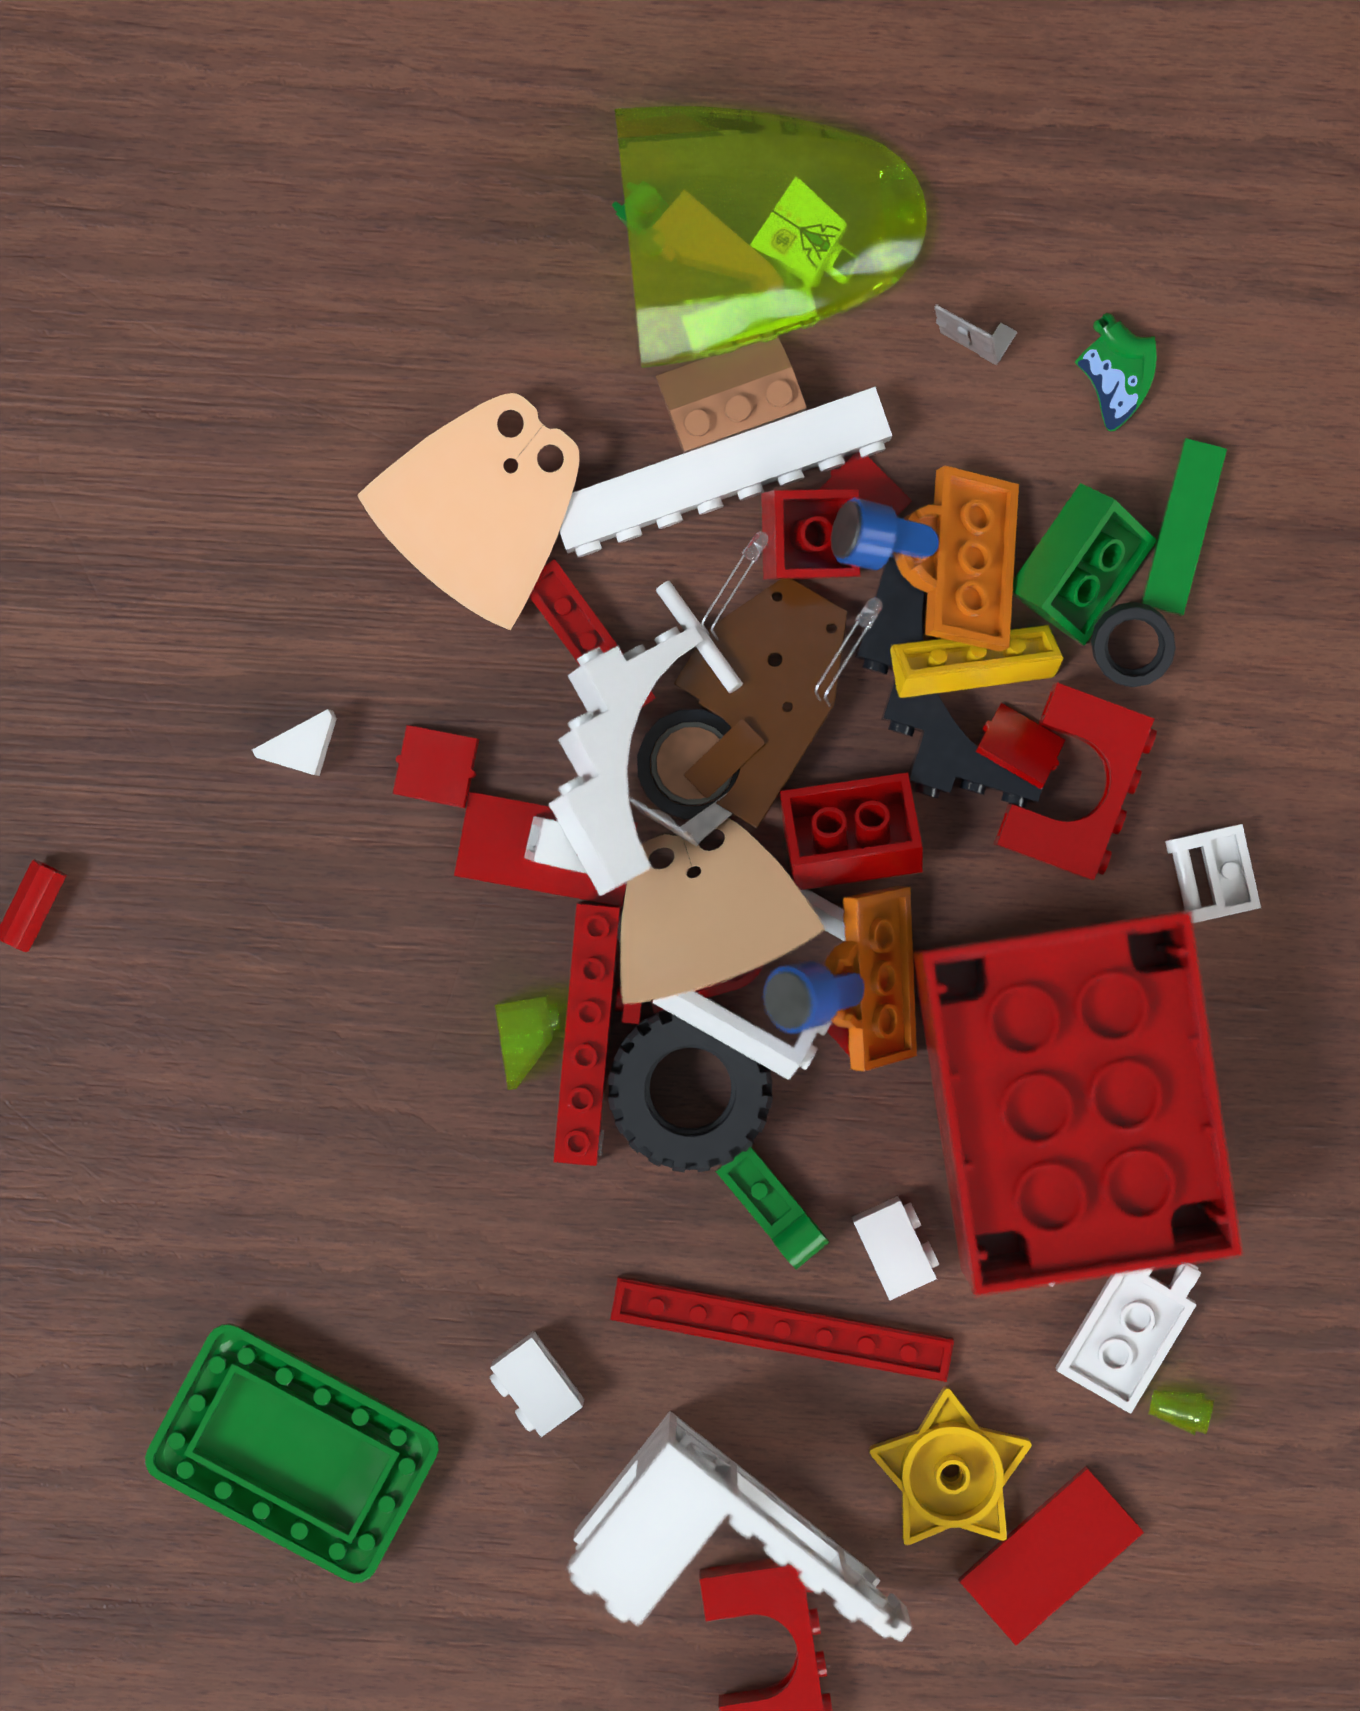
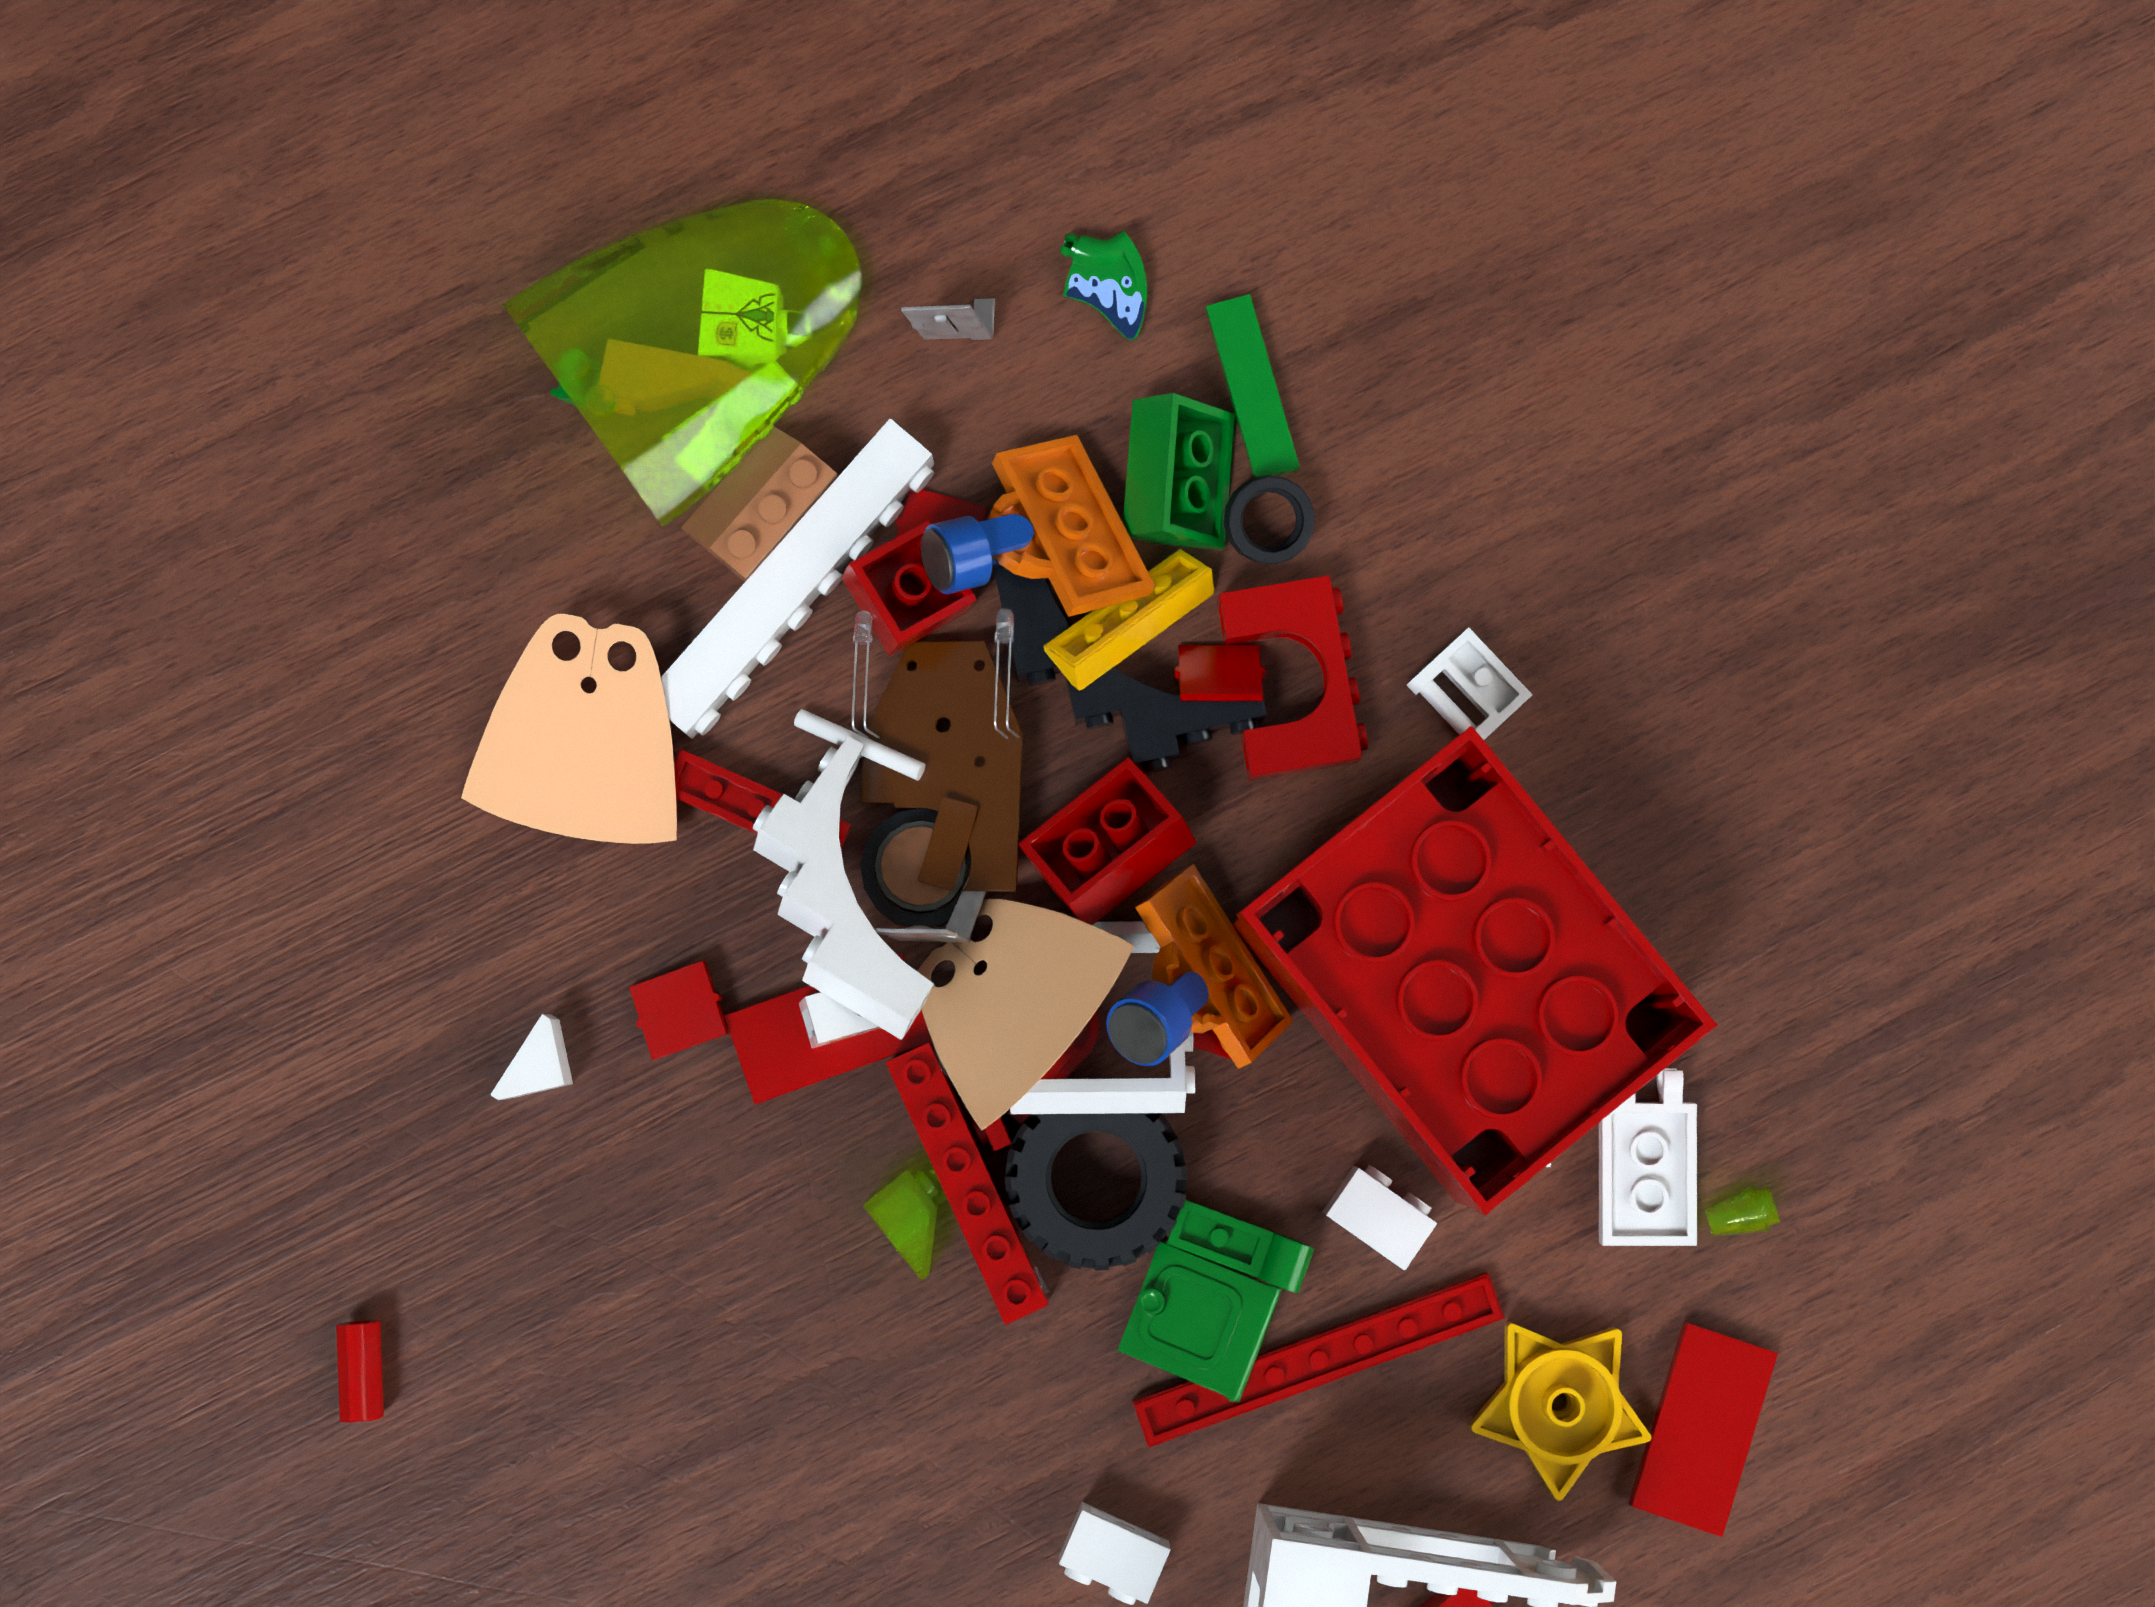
camera: 35 degrees left, 5 degrees down
(710, 1253) = (1208, 1325): none -> green container

